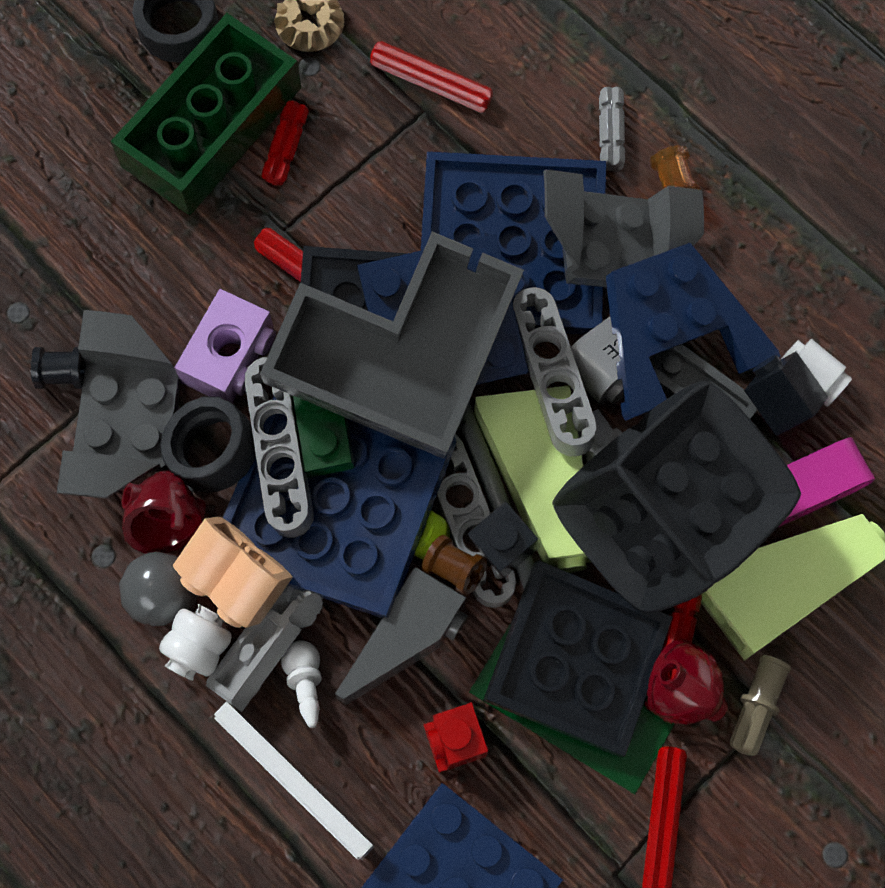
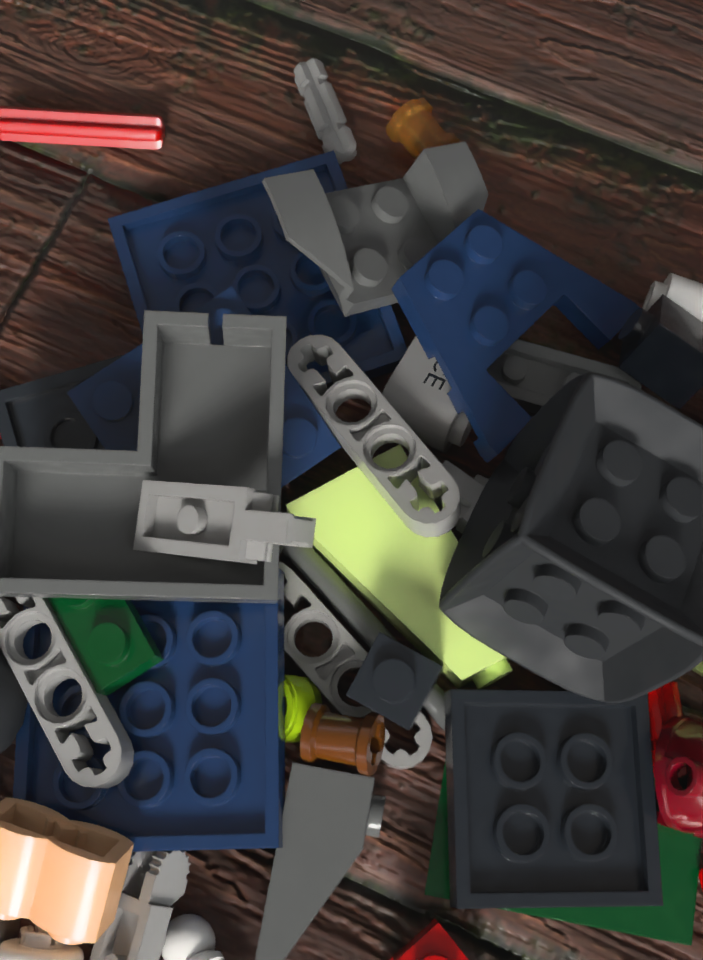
camera: 15 degrees left, 0 degrees up
(425, 387) = (216, 522): none -> light grey hinge

